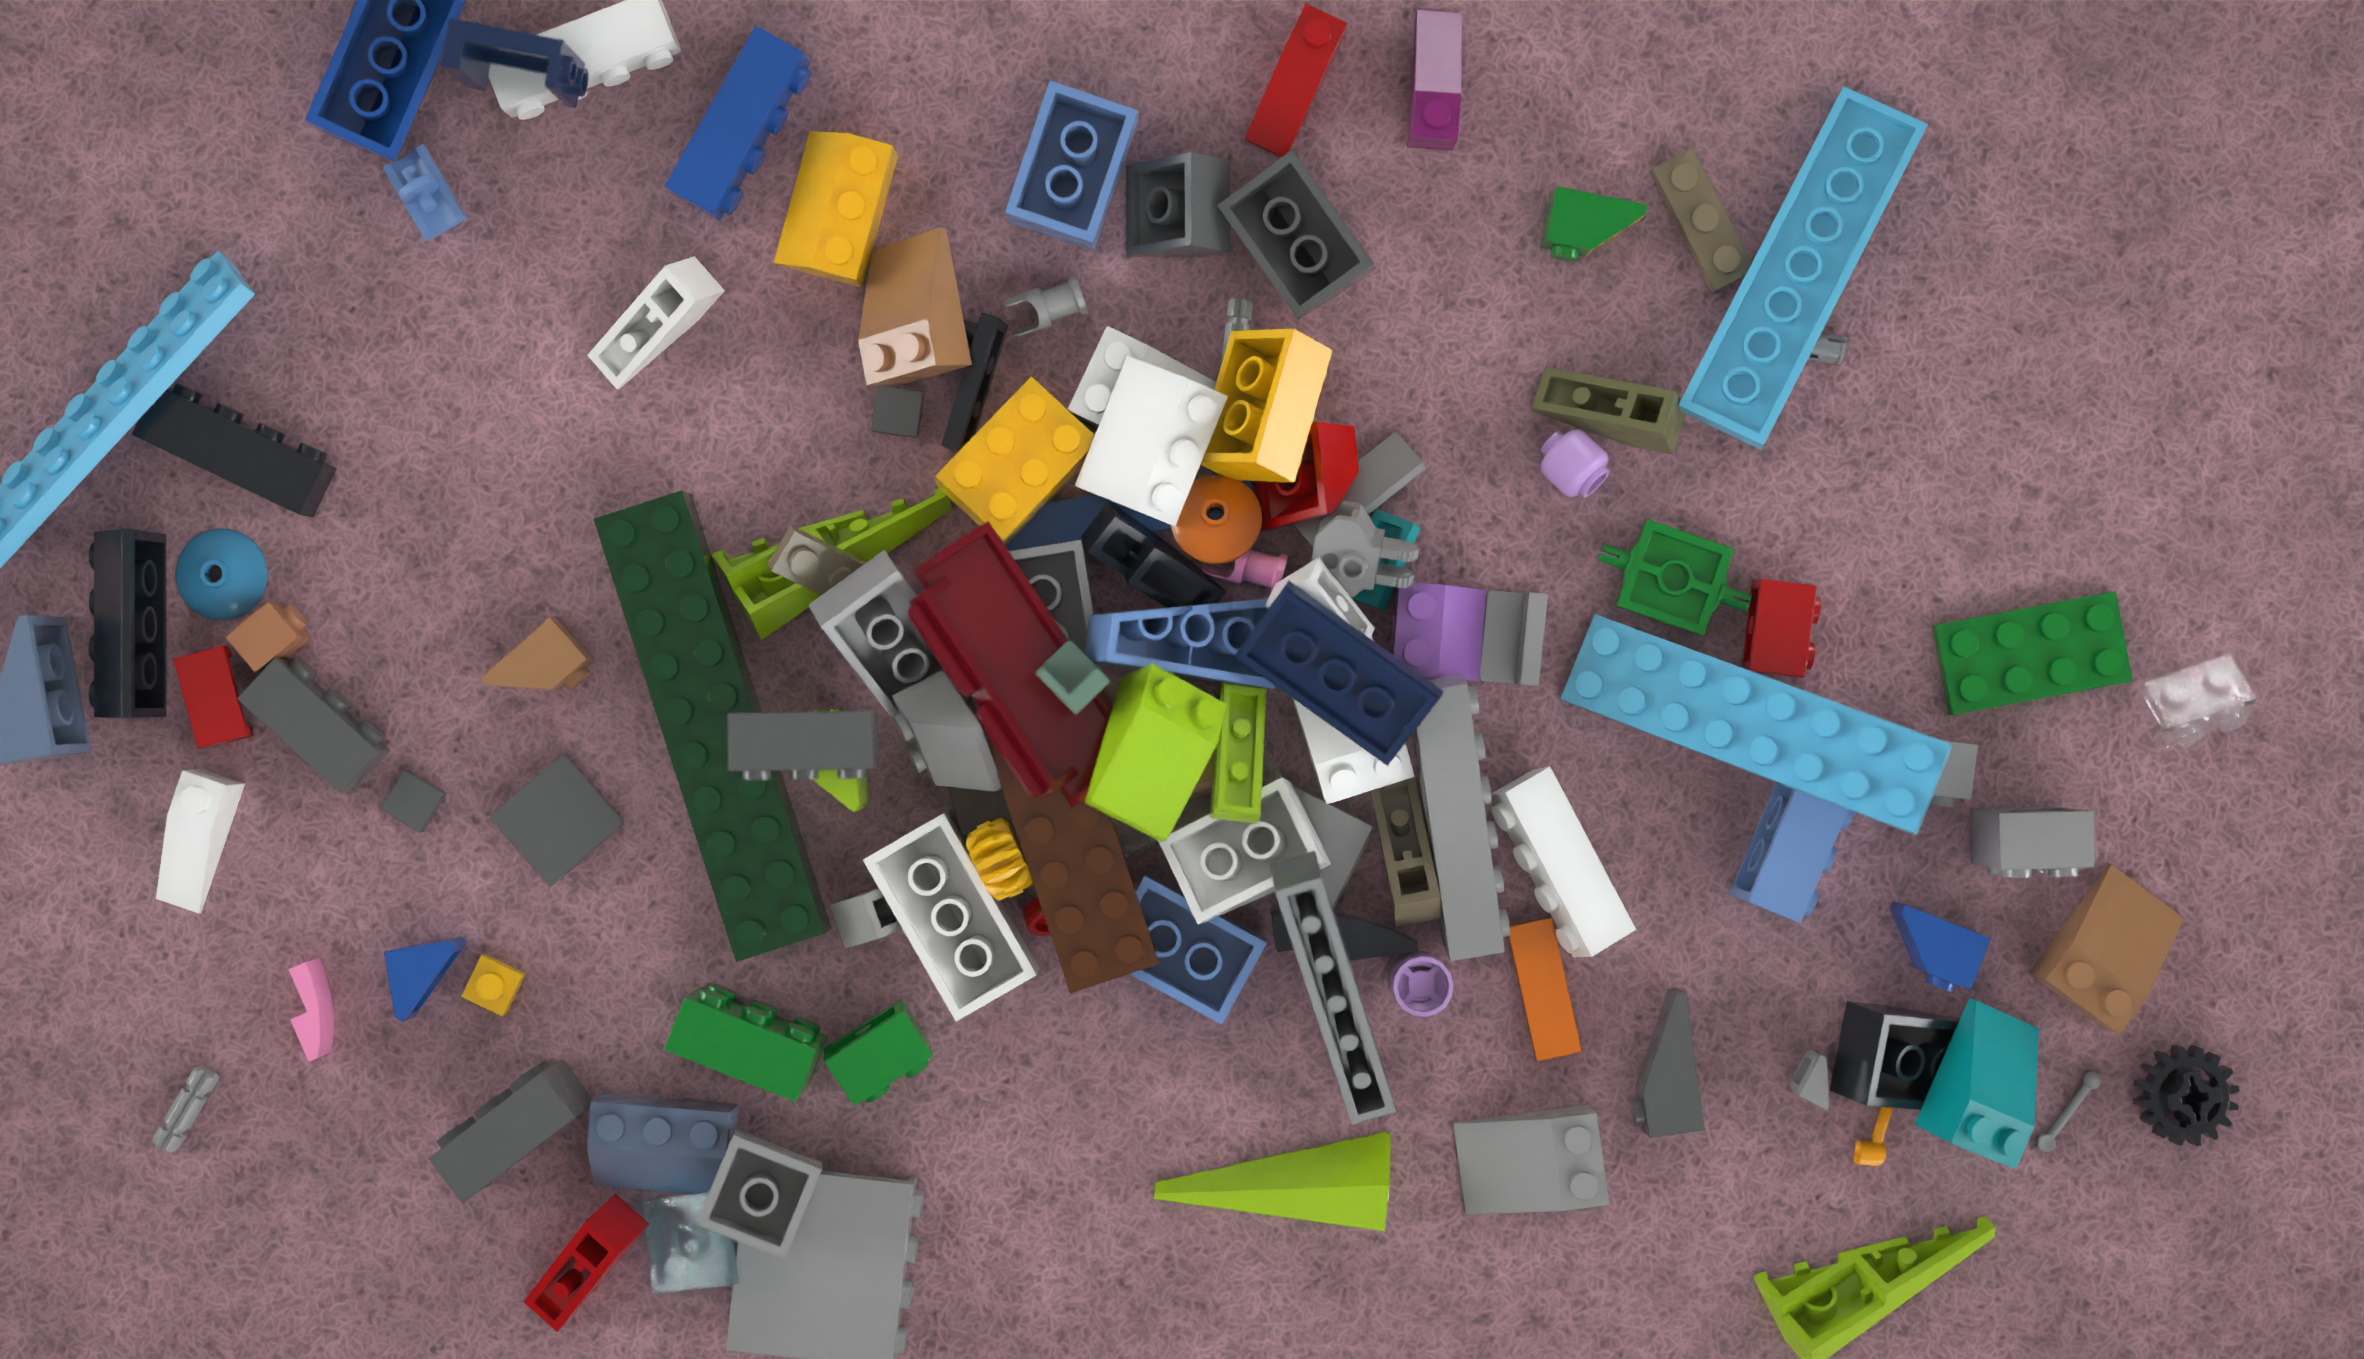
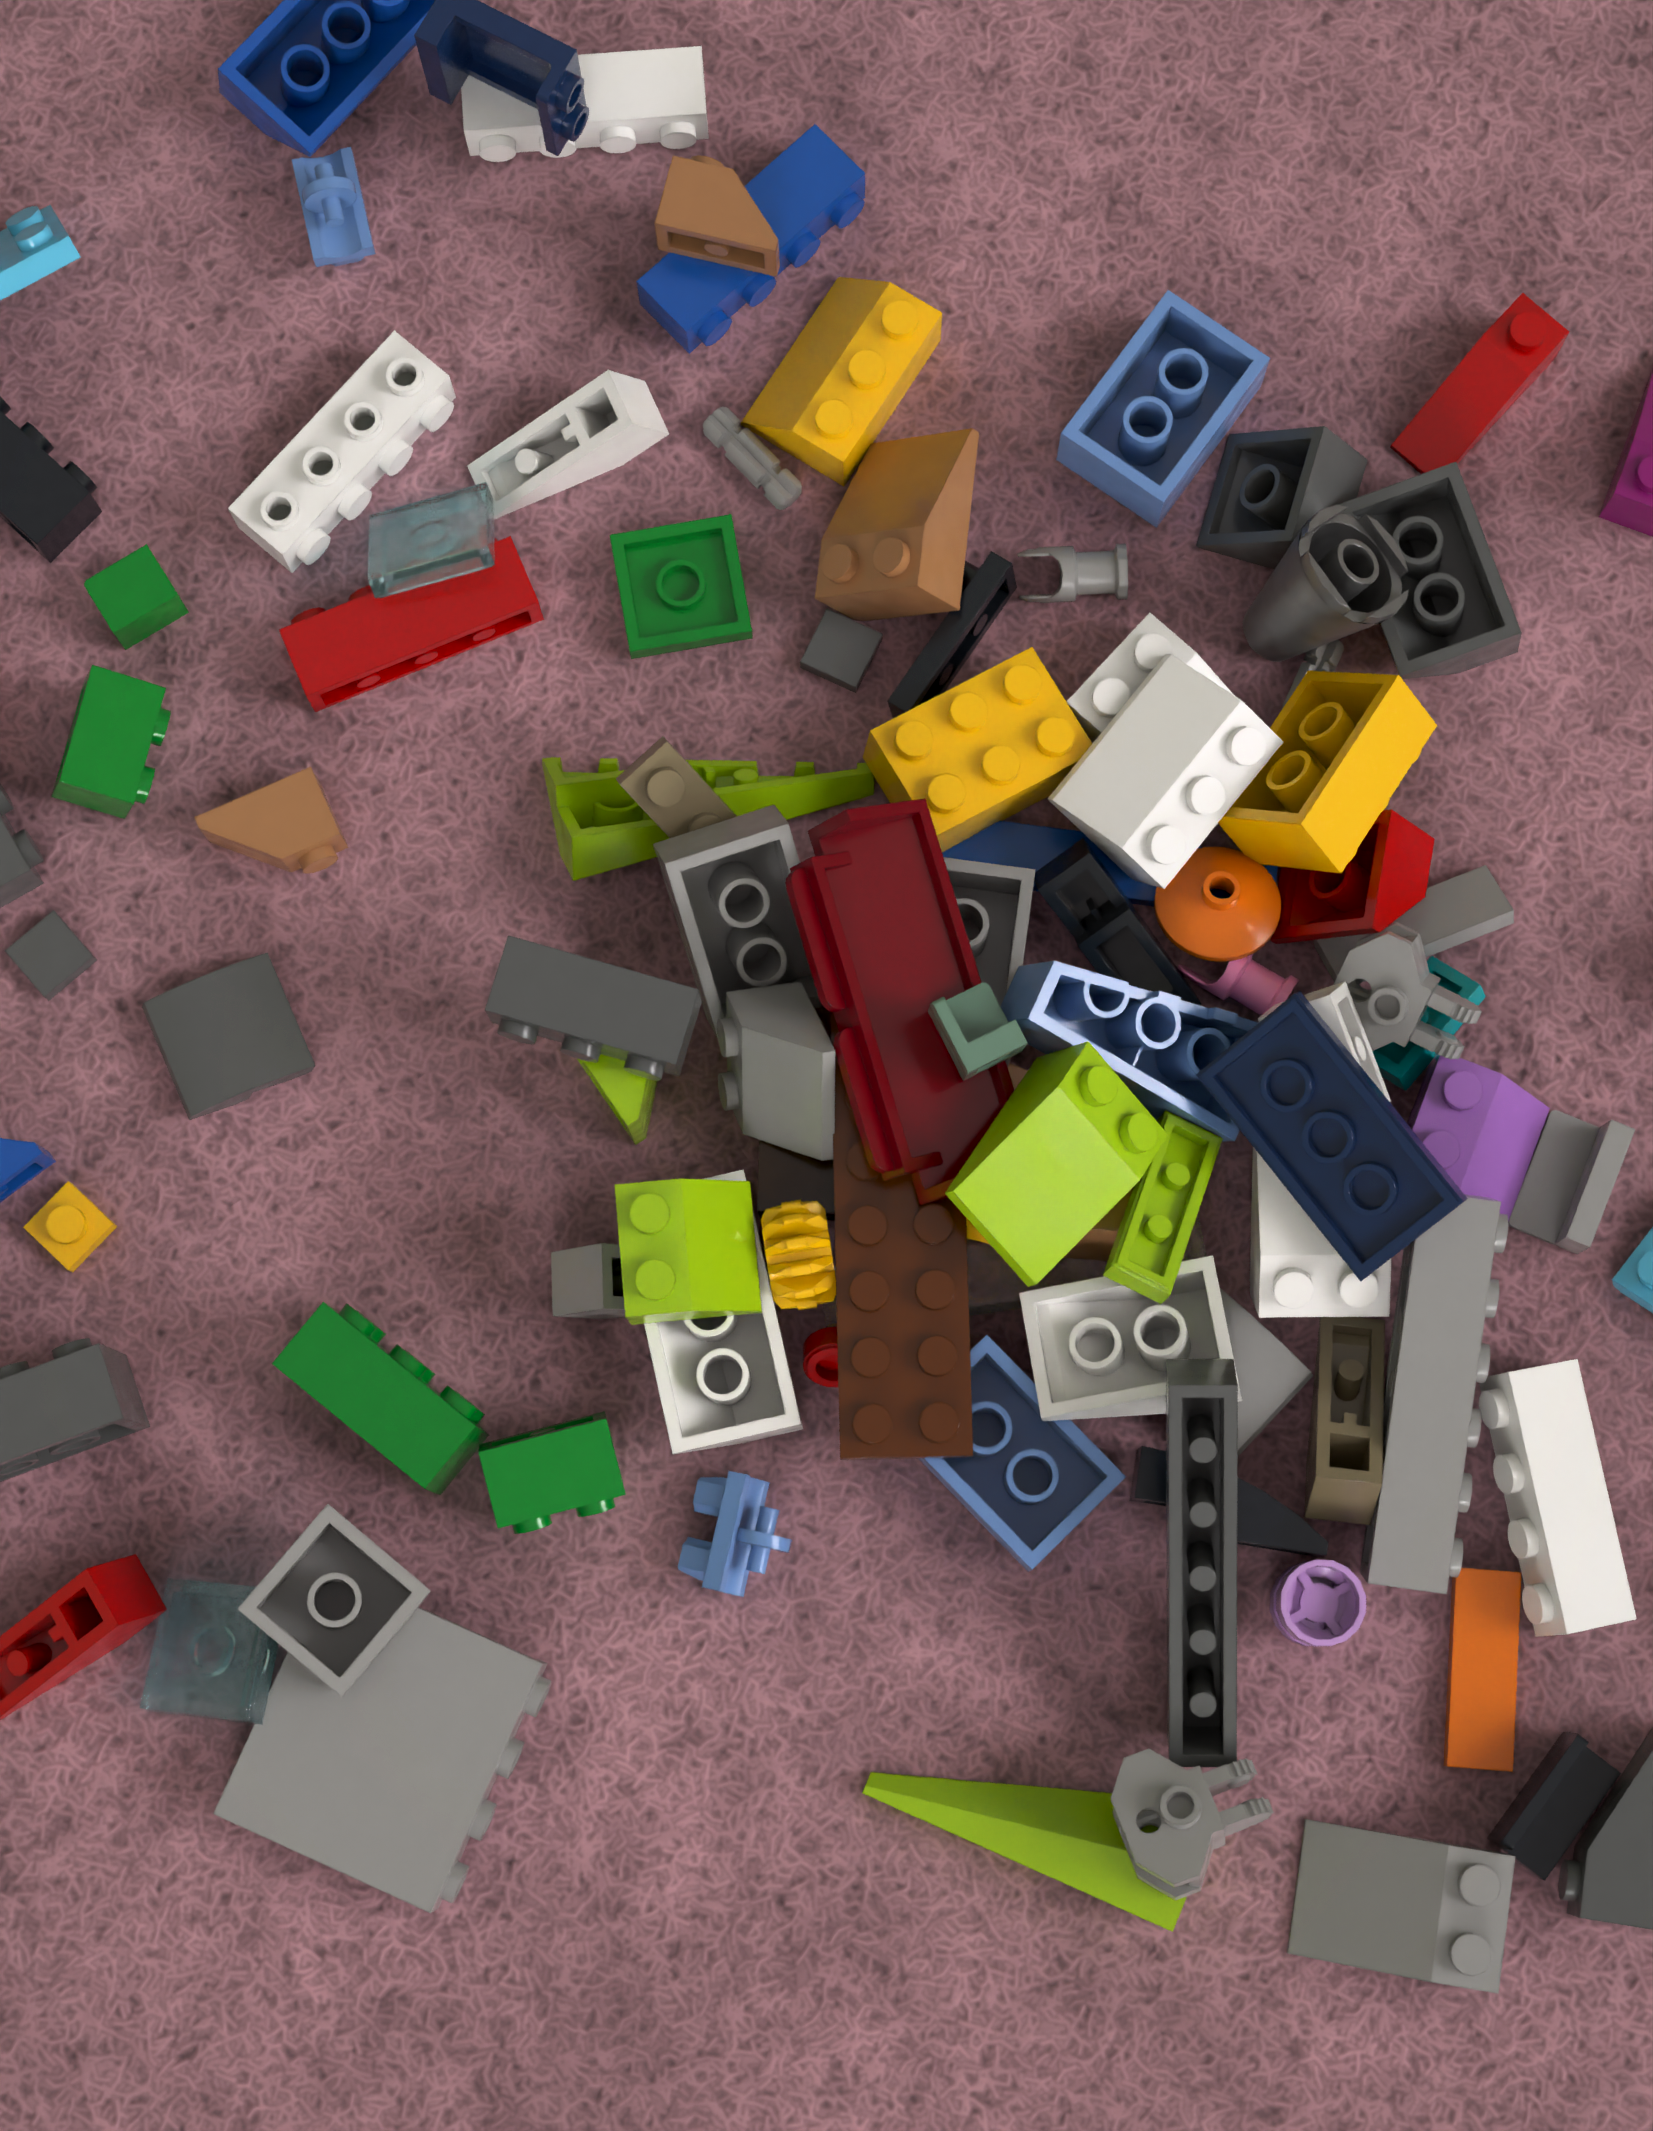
camera: 20 degrees right, 10 degrees down
(383, 528) = (135, 597): none -> green panel
(402, 640) = (111, 742): none -> green brick
(496, 375) = (344, 453): none -> white brick
(579, 425) = (431, 540): none -> clear light blue tile
(585, 487) = (389, 637): none -> red brick
(658, 1142) = (212, 1503): sand blue slope -> none
(694, 682) = (471, 885): dark green brick -> none
(702, 125) = (713, 217): none -> medium nougat slope
(769, 400) = (681, 586): none -> green plate
(790, 288) = (752, 458): none -> light grey axle
(922, 885) = (687, 1249): none -> lime slope
(1020, 1055) = (740, 1537): none -> medium blue hips
(1228, 270) = (1327, 586): none -> flat silver cone
(1371, 1155) = (1182, 1807): none -> light grey hinge
(1614, 1064) = (1554, 1805): none -> black panel

